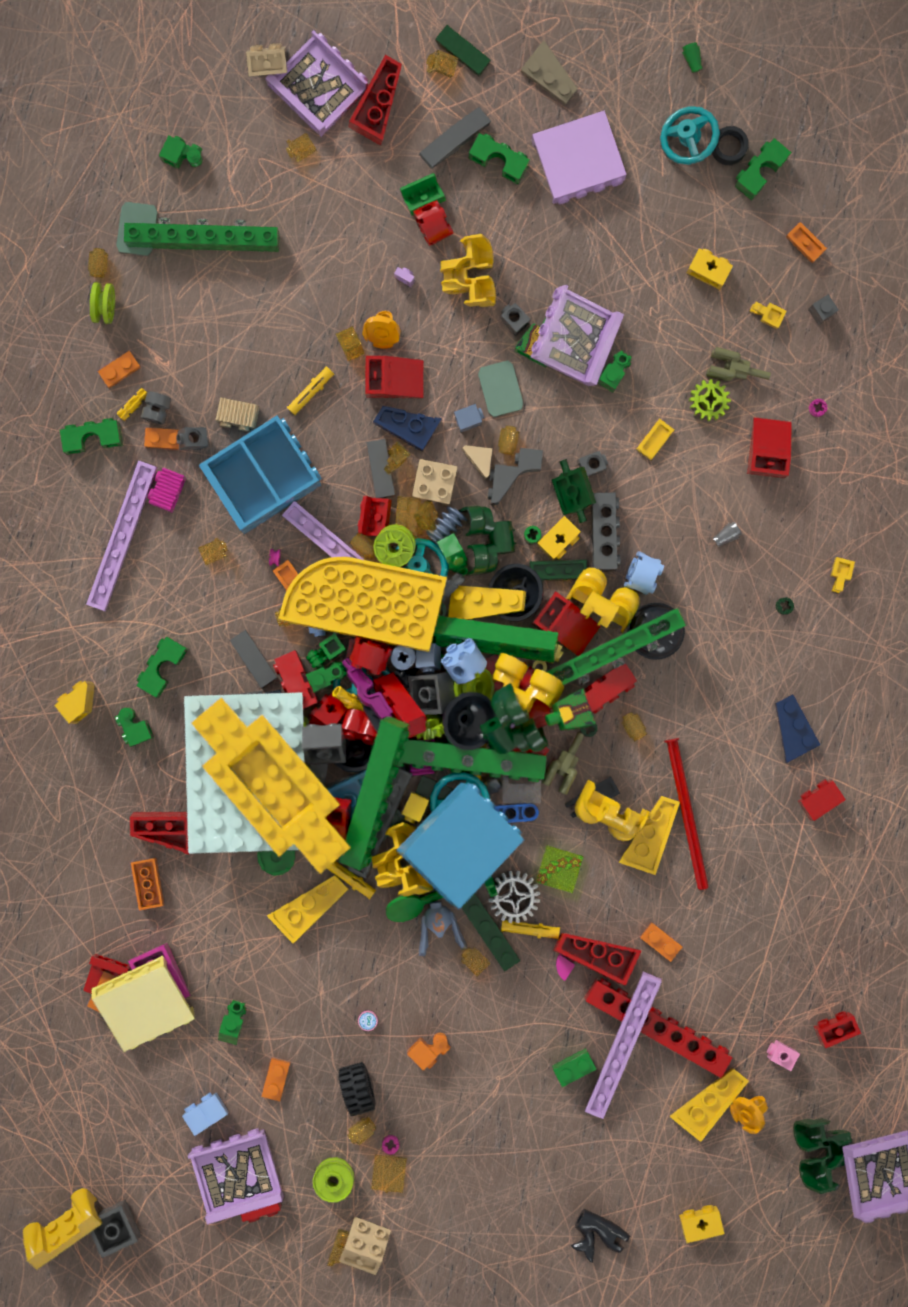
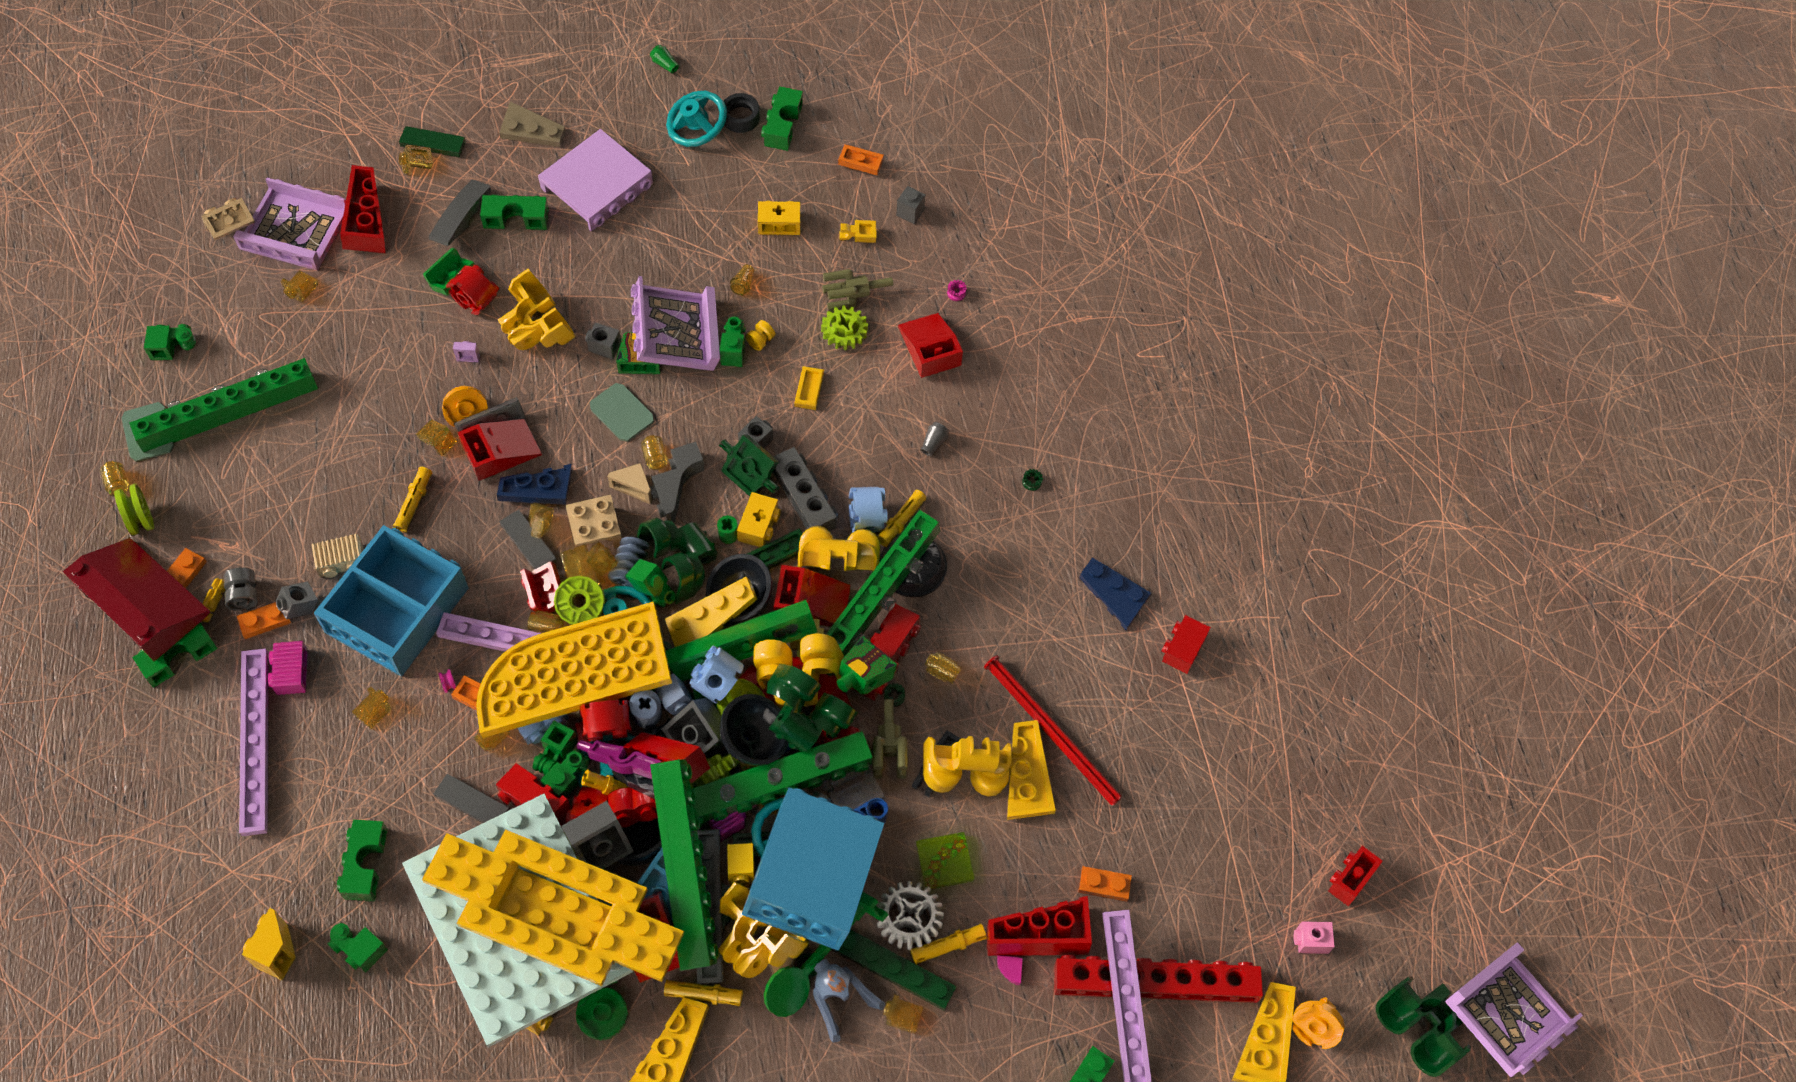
camera: 25 degrees left, 25 degrees down
(80, 379) = (137, 595): none -> dark red slope
(161, 828) = (444, 1045): red wedge -> none
(401, 349) = (503, 412): none -> dark grey tile
(452, 585) = (665, 614): dark grey axle -> none
(468, 417) = (600, 450): sand blue brick -> none
(639, 374) = (760, 335): none -> yellow wheel
(650, 315) = (741, 282): none -> clear yellow cone
(666, 590) = (896, 524): none -> yellow pin
(842, 571) = (1071, 420): yellow plate -> none

